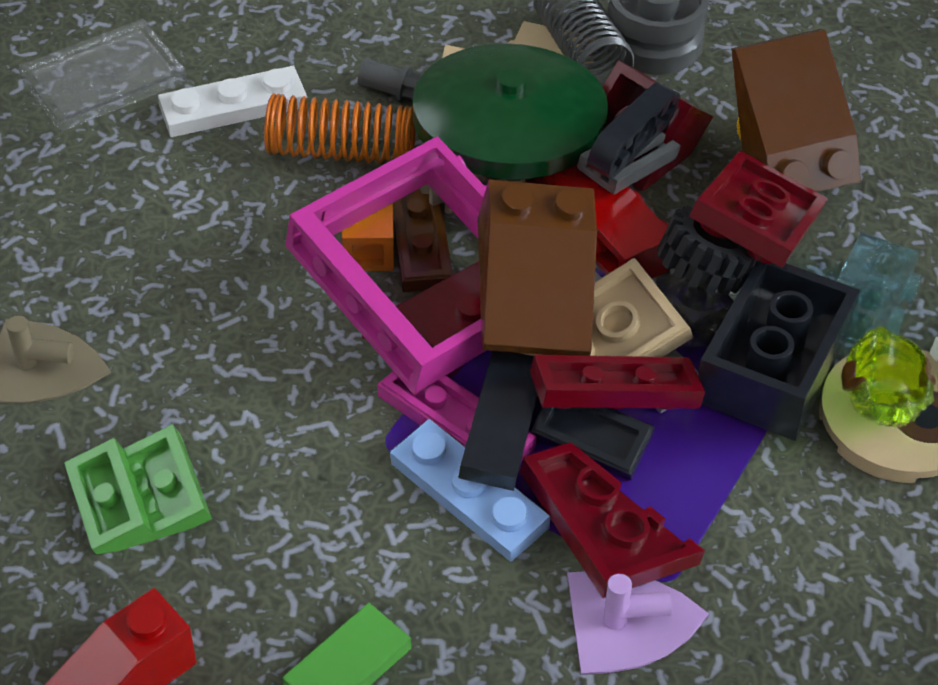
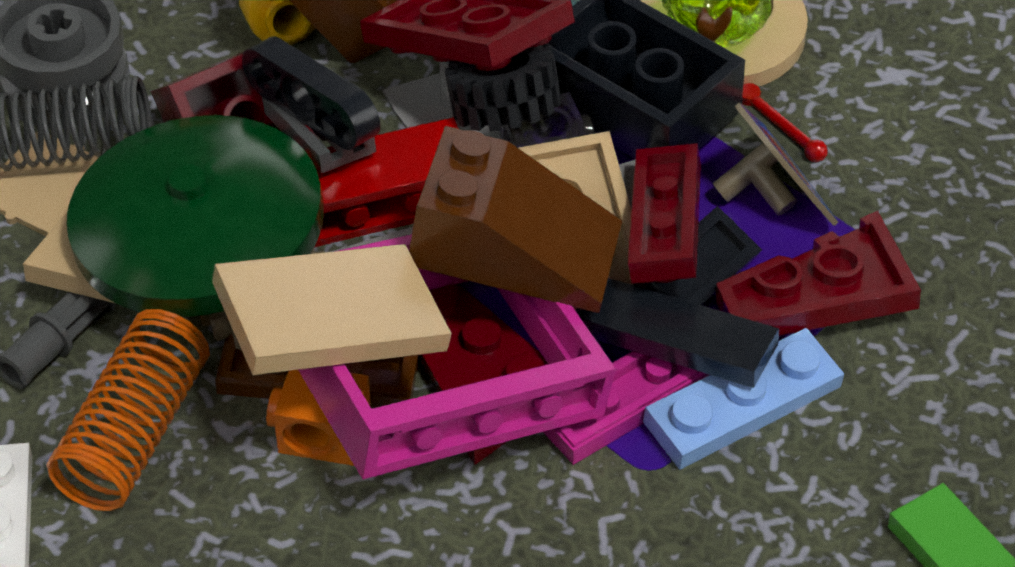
camera: 75 degrees left, 0 degrees up
(398, 170) = (330, 308): none -> tan tile
(630, 623) = (952, 311): lavender shield -> none
(726, 464) = (757, 170): none -> dark tan shield
(824, 450) = (814, 150): none -> red hinge

